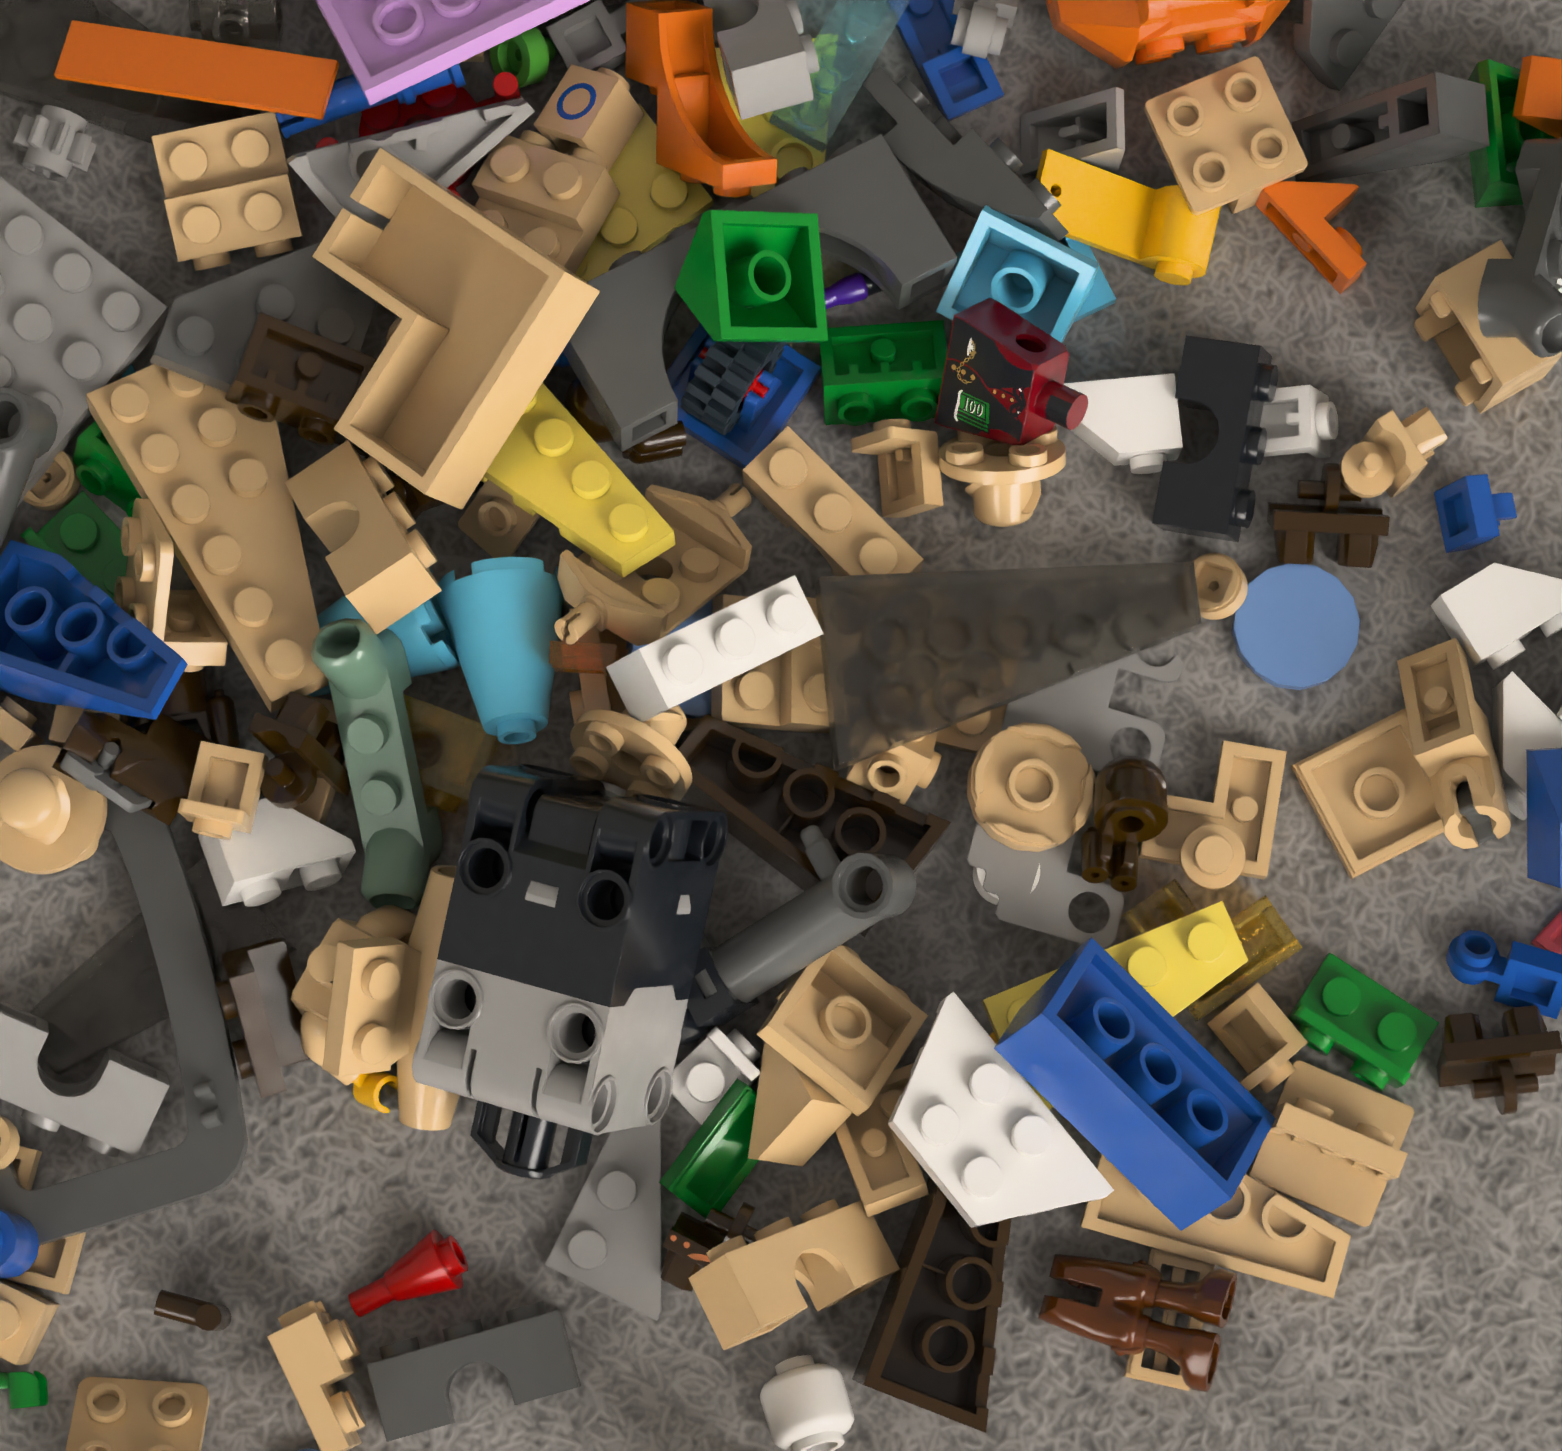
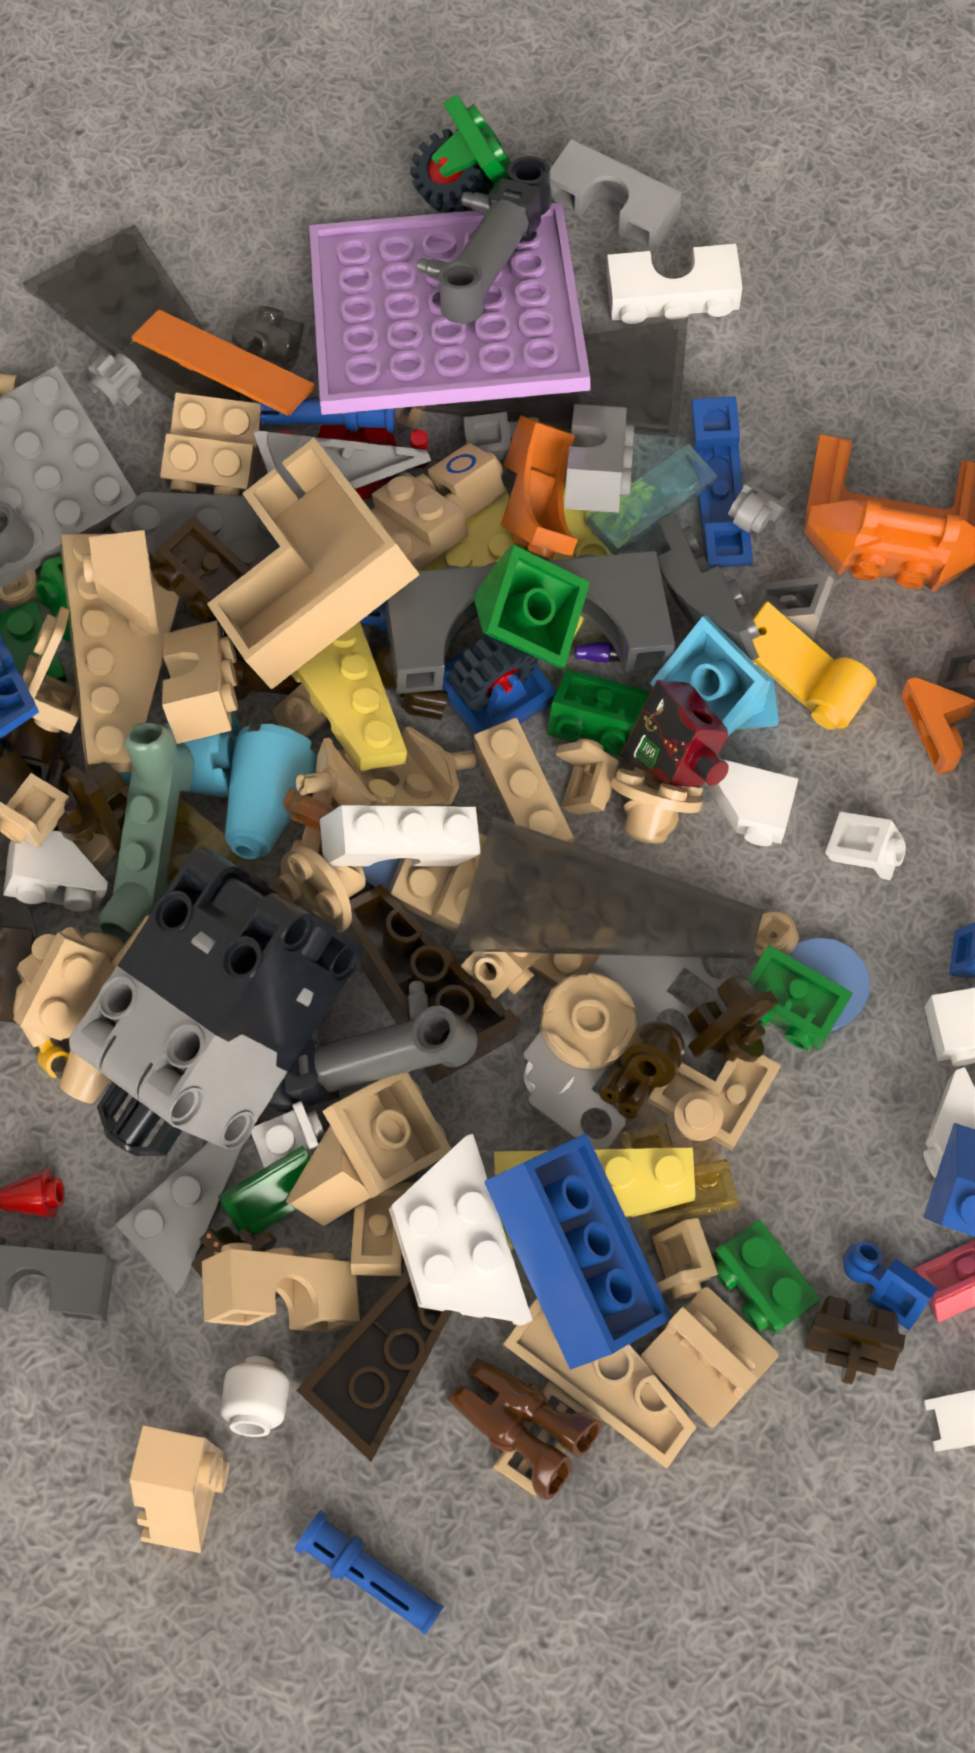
camera: 25 degrees right, 10 degrees down
(206, 430) = (123, 576): none -> tan slope
(524, 56) = (441, 428): bright green tile -> none
(1213, 493) = (796, 868): black arch -> none
(1216, 730) = (735, 1029): none -> dark brown hips
(1226, 137) = (894, 638): tan bracket -> none
(1271, 662) = (806, 999): none -> green bracket
(1297, 523) = (889, 932): dark brown hips -> none
(1371, 795) = (837, 1122): tan tile -> none
(1391, 454) = (932, 887): tan hips -> none
(1454, 744) = (903, 1104): tan plate -> none

